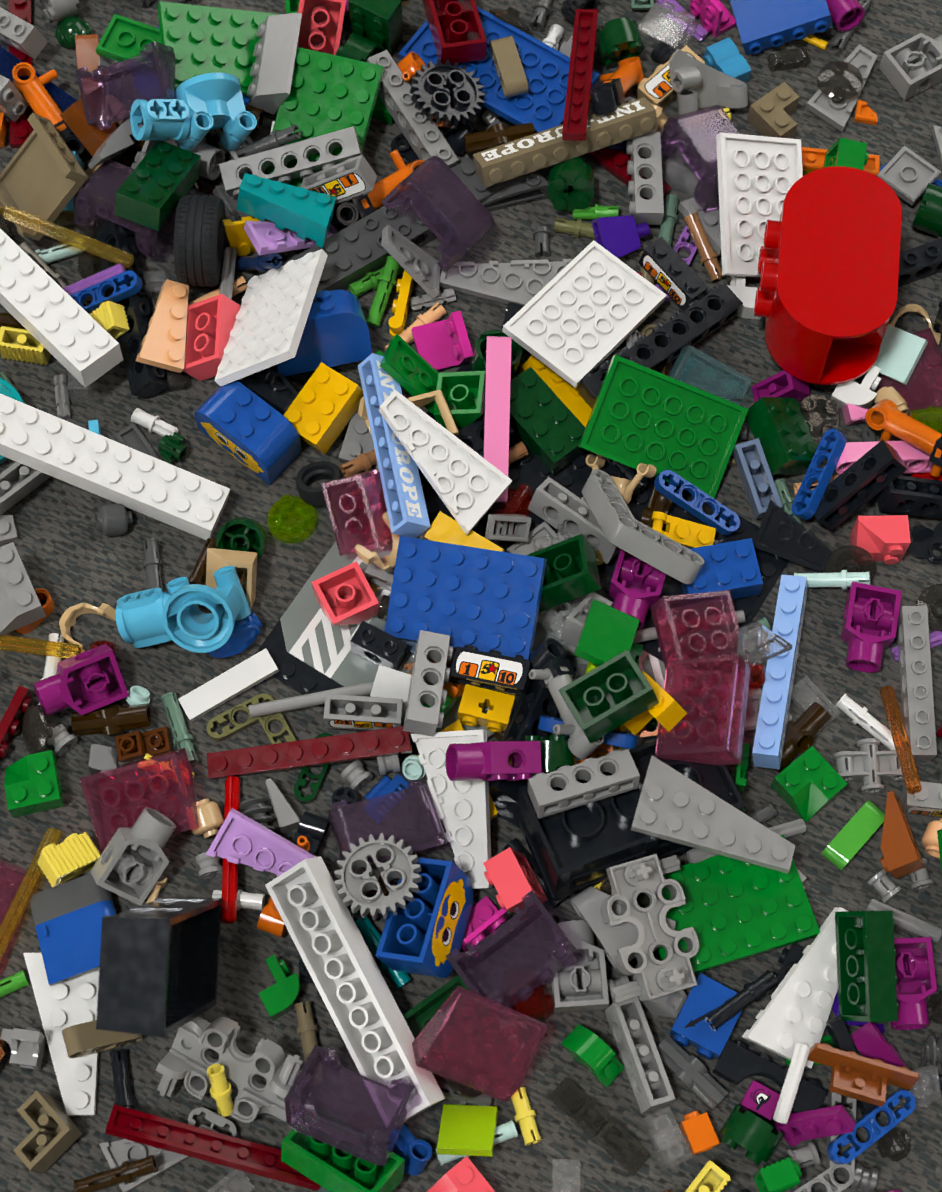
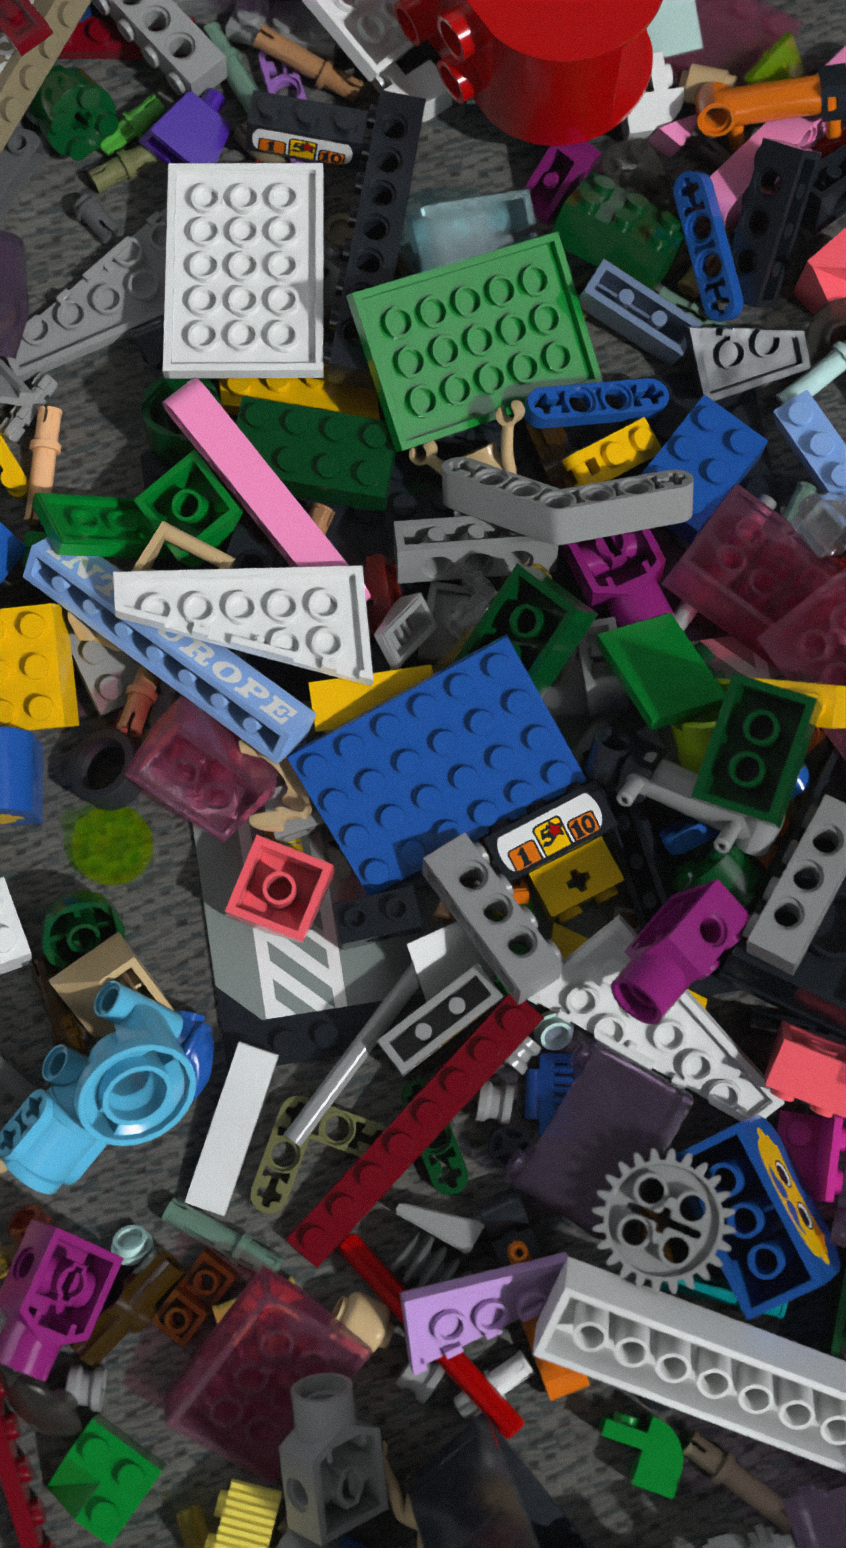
camera: 45 degrees left, 10 degrees up
(102, 758) = (160, 1363): slope -> none
(443, 342) = (96, 452): dark pink bracket -> none

